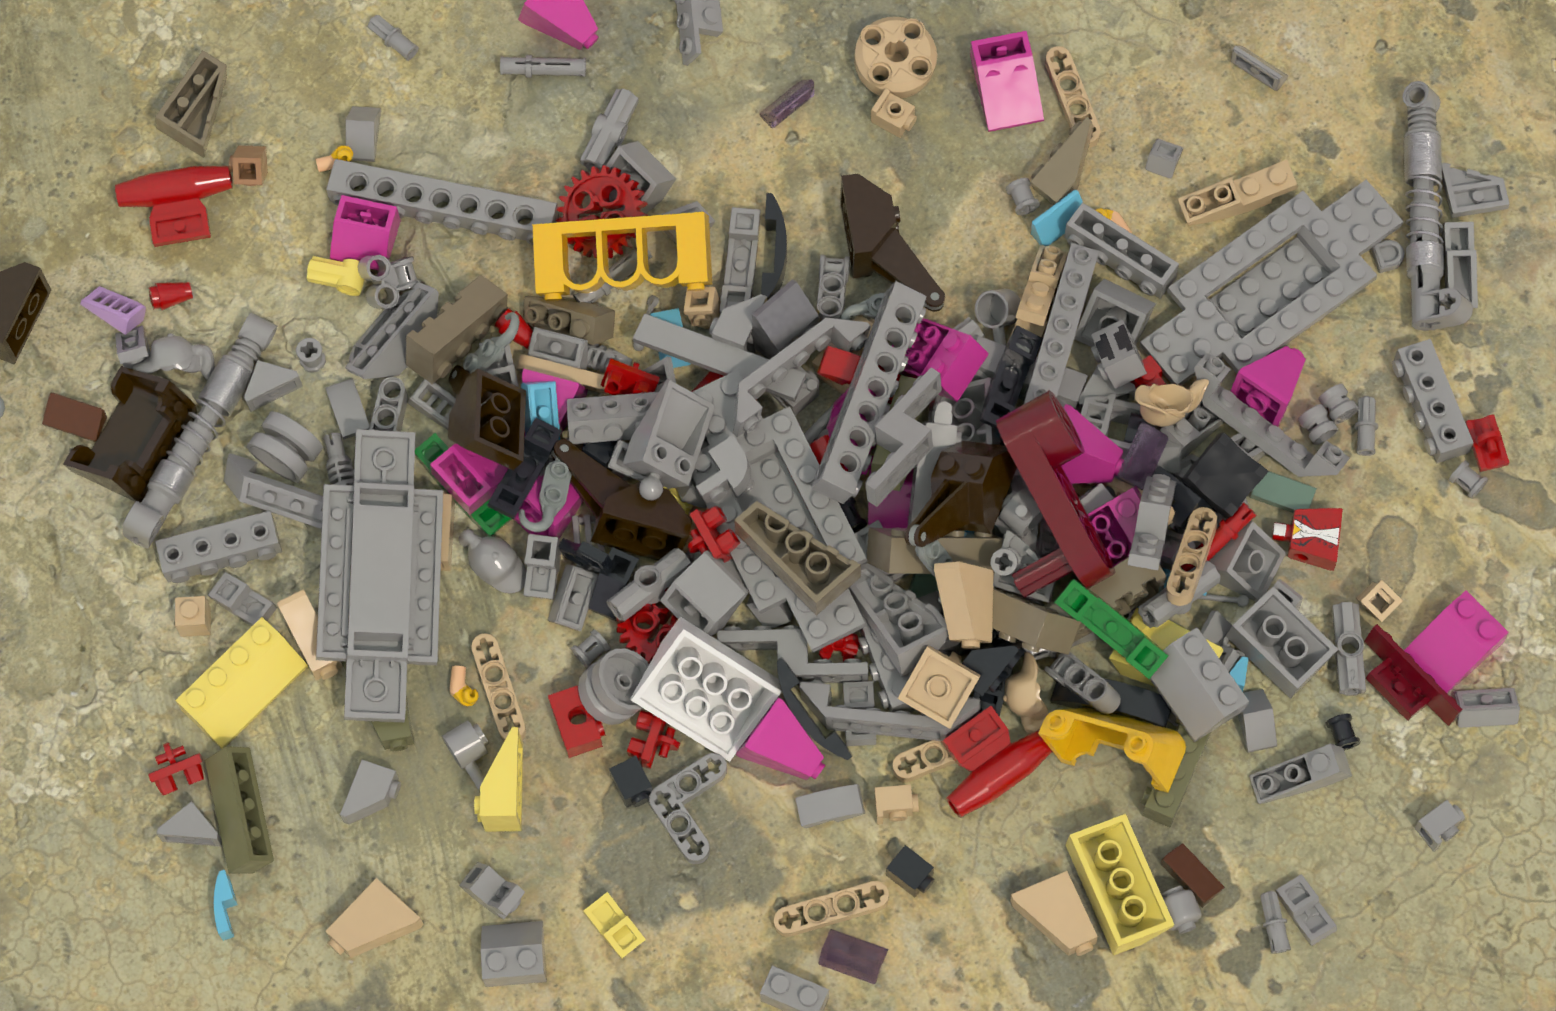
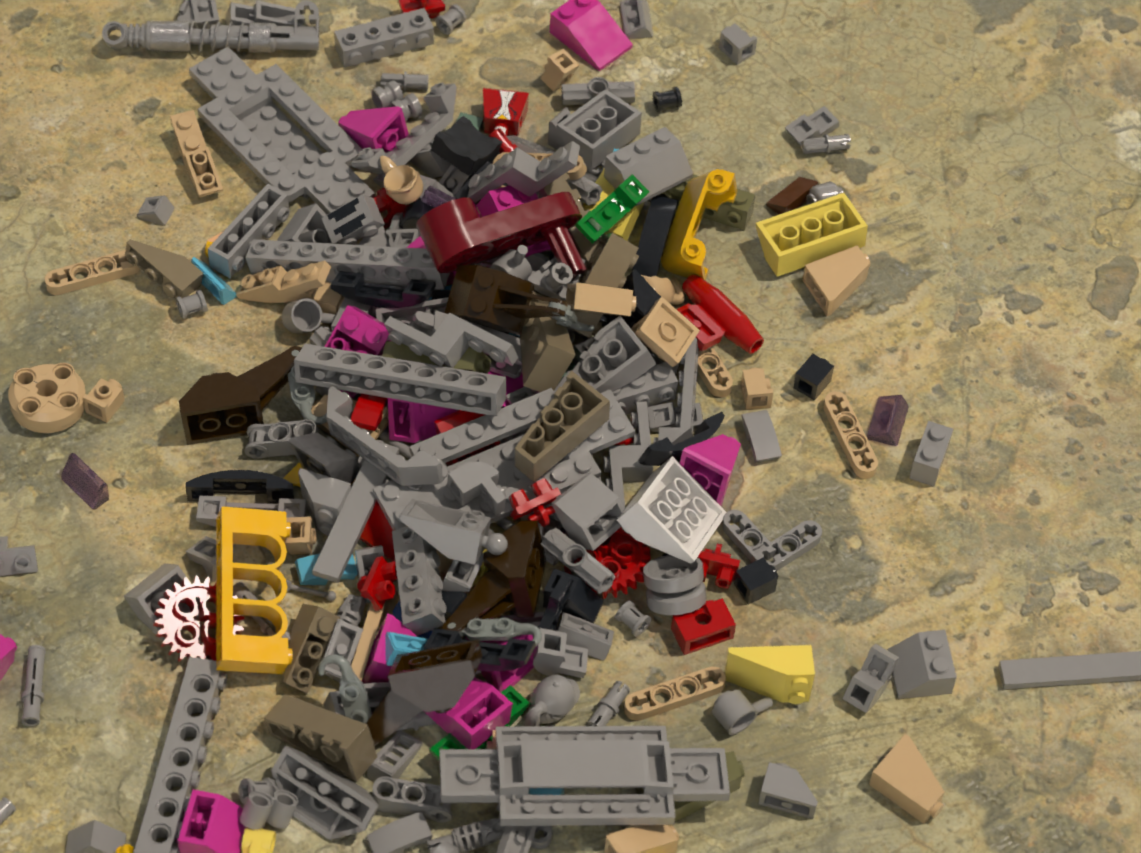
camera: 100 degrees left, 15 degrees down
(460, 689) = (680, 723): arm -> none
(485, 618) = (609, 705): none -> light grey pin
(524, 331) = (317, 691): red cone -> none
(609, 129) = (108, 624): light grey piece -> none
(614, 925) = (885, 593): light yellow slope -> none
(1006, 81) = (78, 313): slope -> none
(1084, 682) = (658, 240): light grey piece -> none
(1258, 67) = (74, 144): light grey slope -> none
(1301, 774) = (704, 124): light grey slope -> none
(1387, 255) = (254, 62): light grey tile -> none
(1405, 682) = (623, 58): dark red bracket -> none

